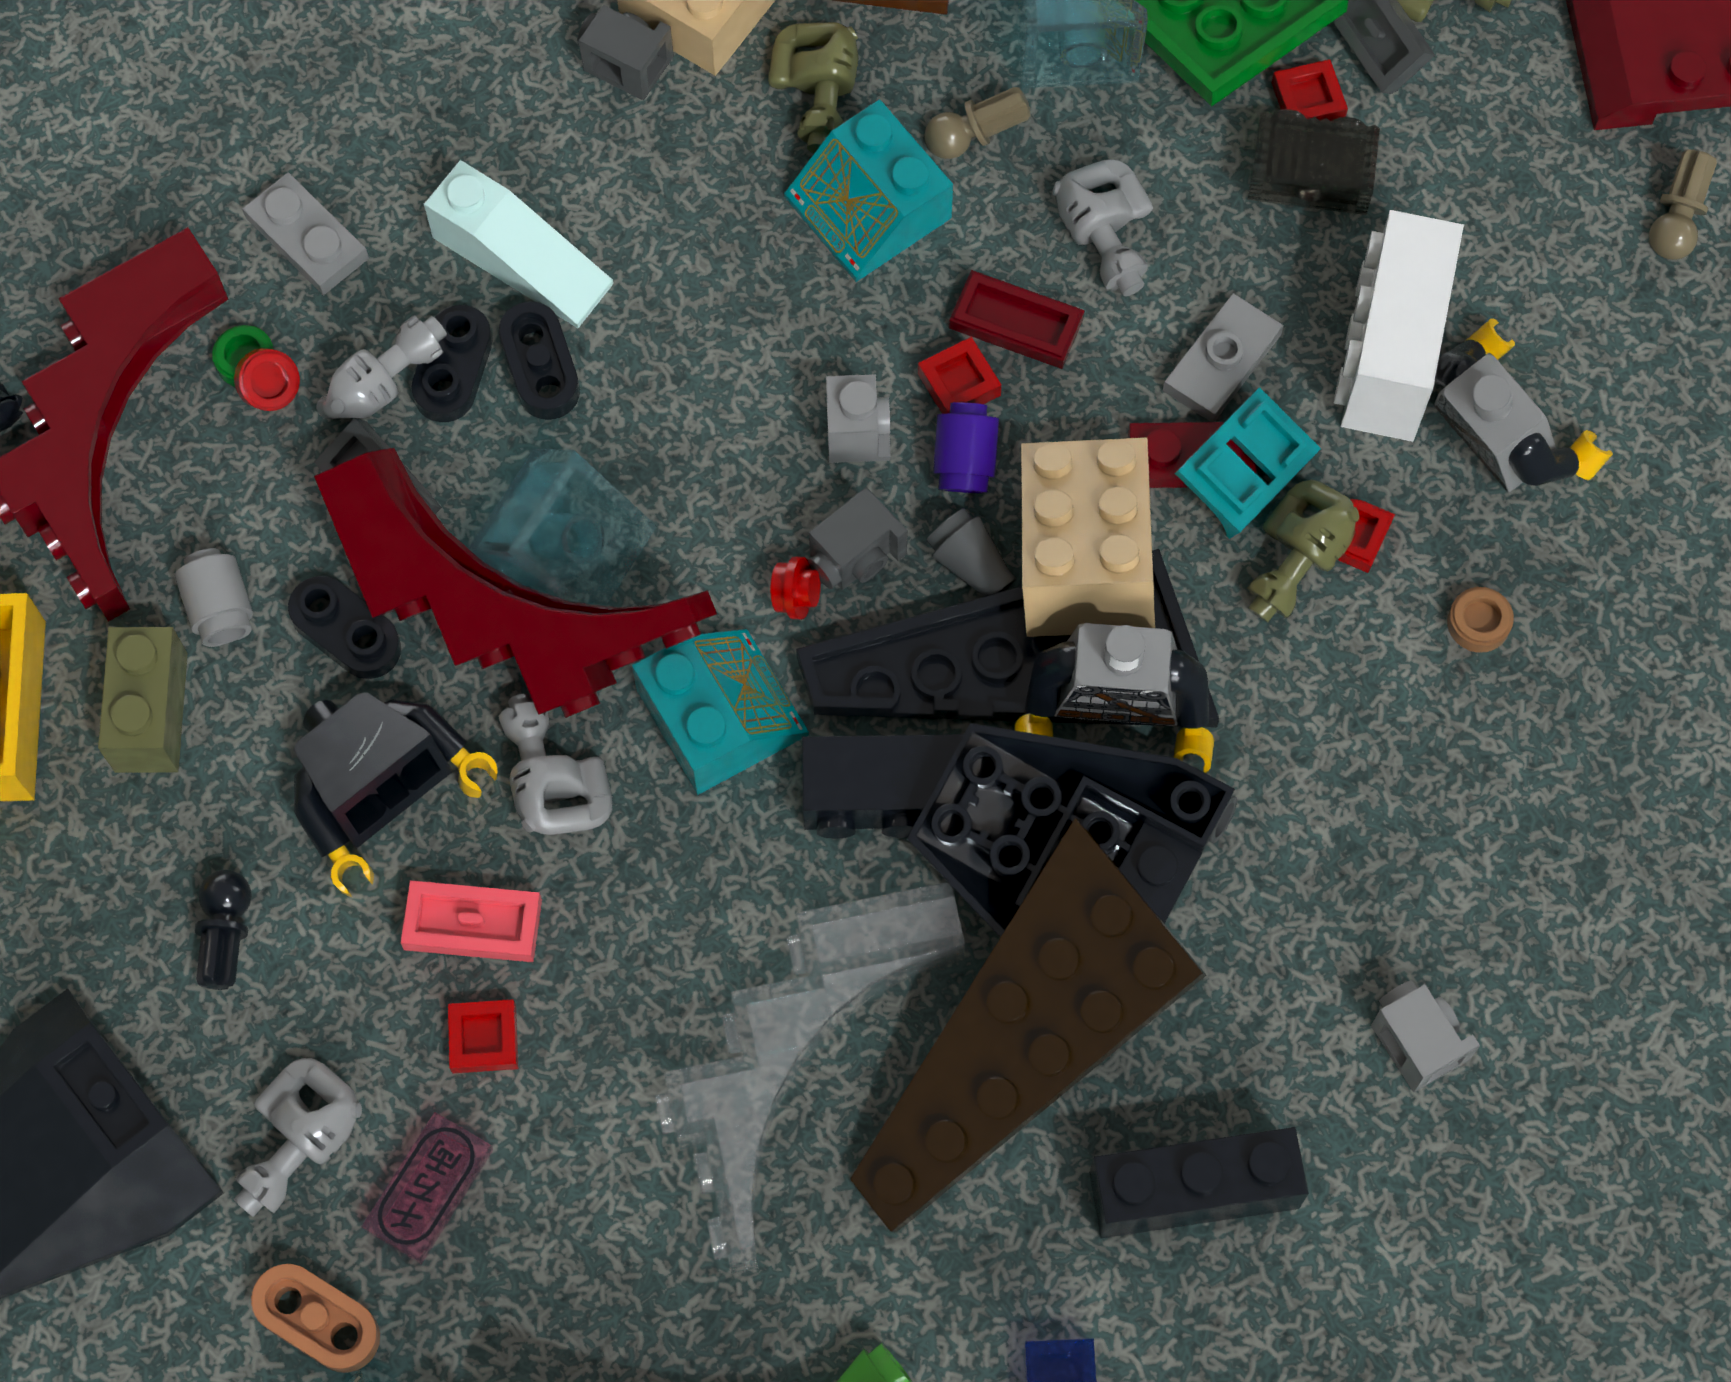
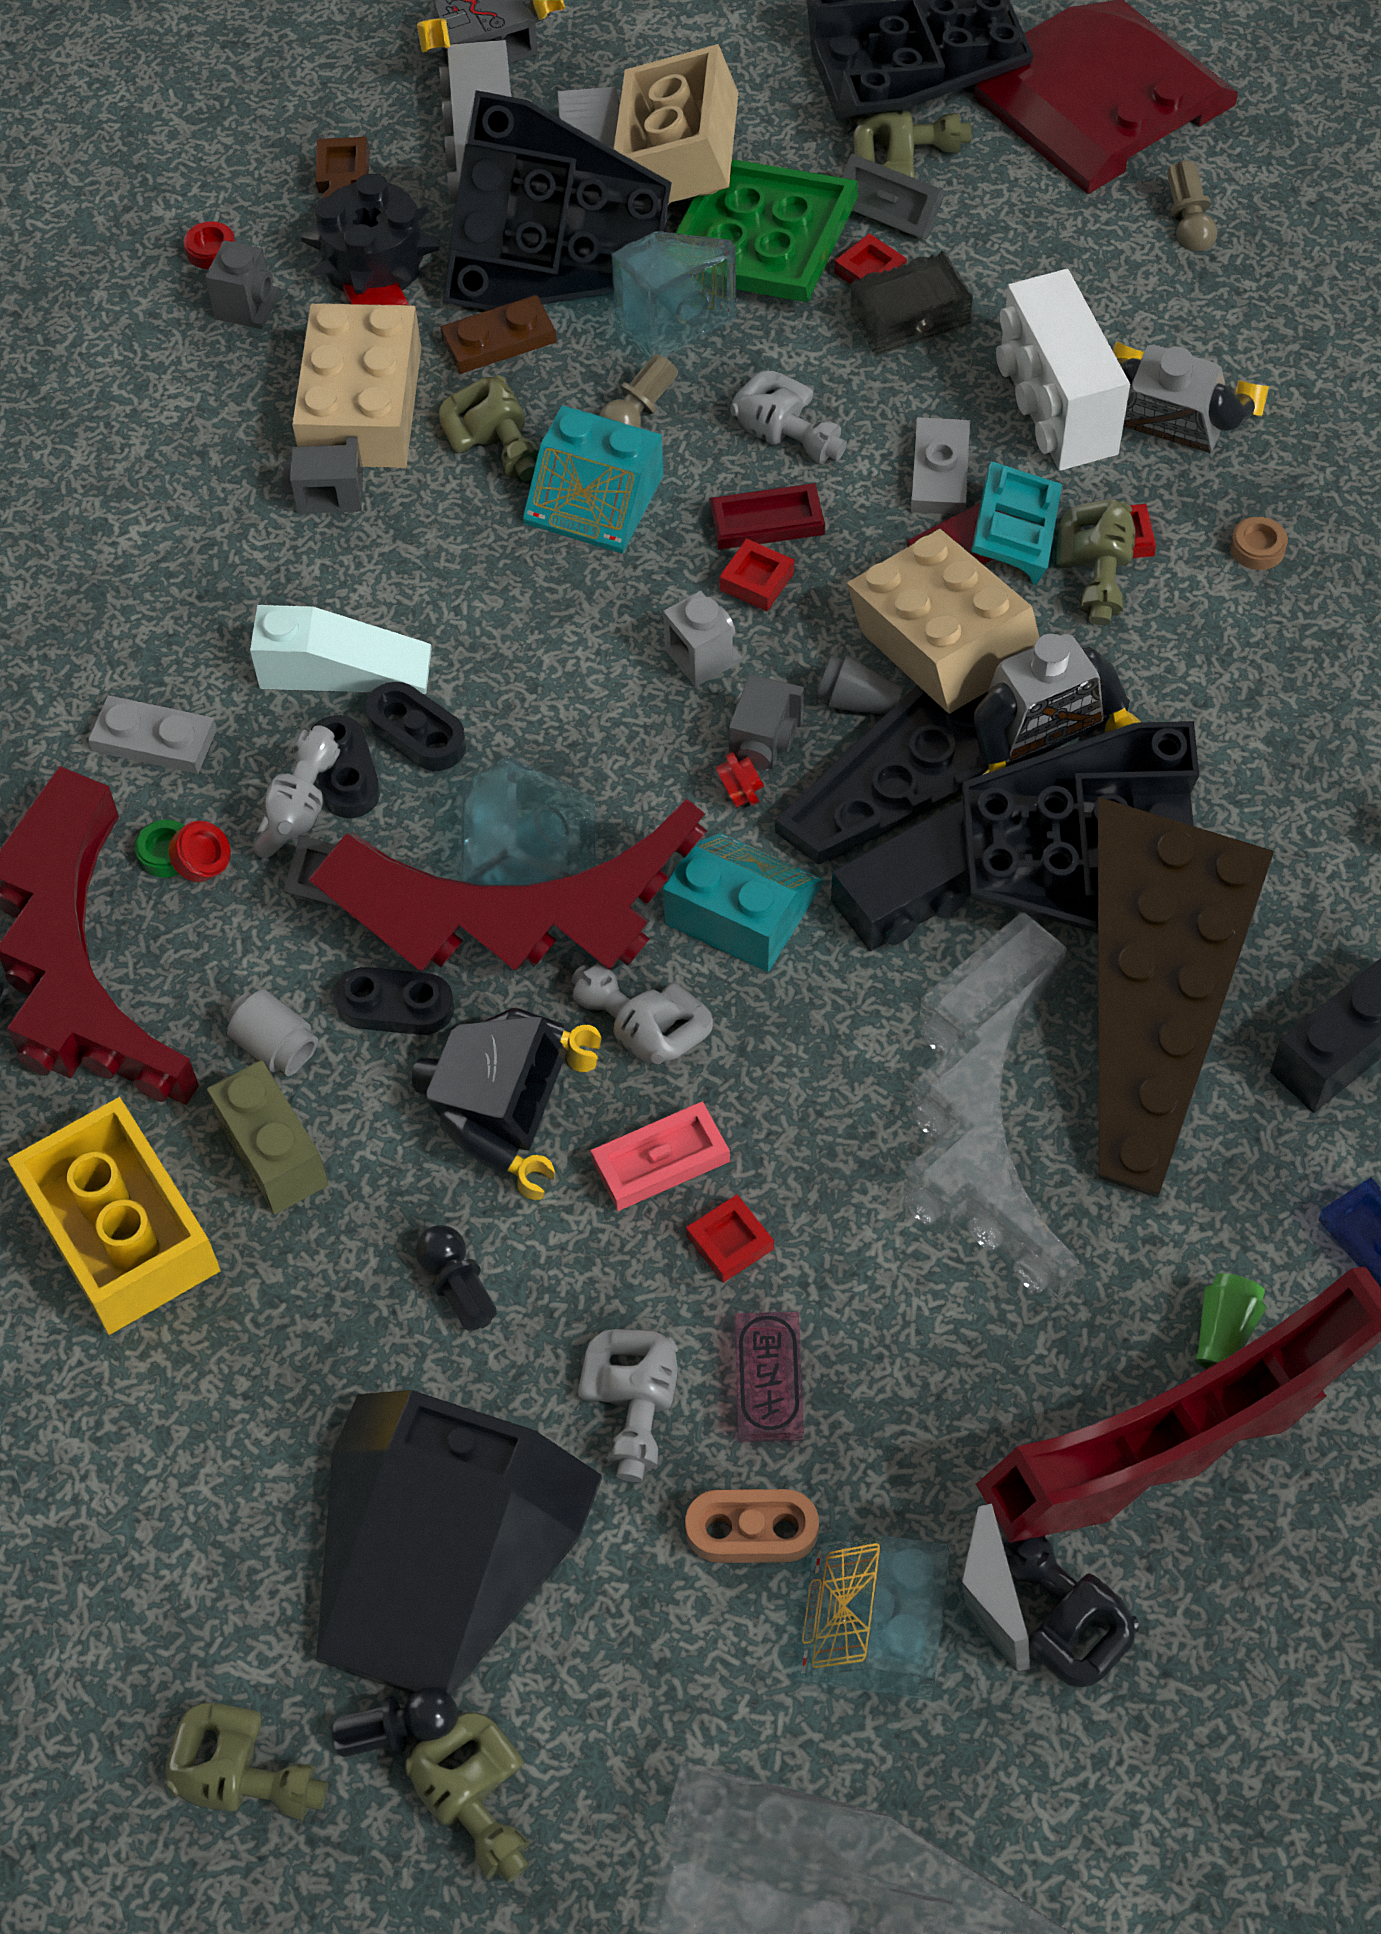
camera: 30 degrees left, 10 degrees down
(965, 448) = (800, 615): dark purple brick -> none

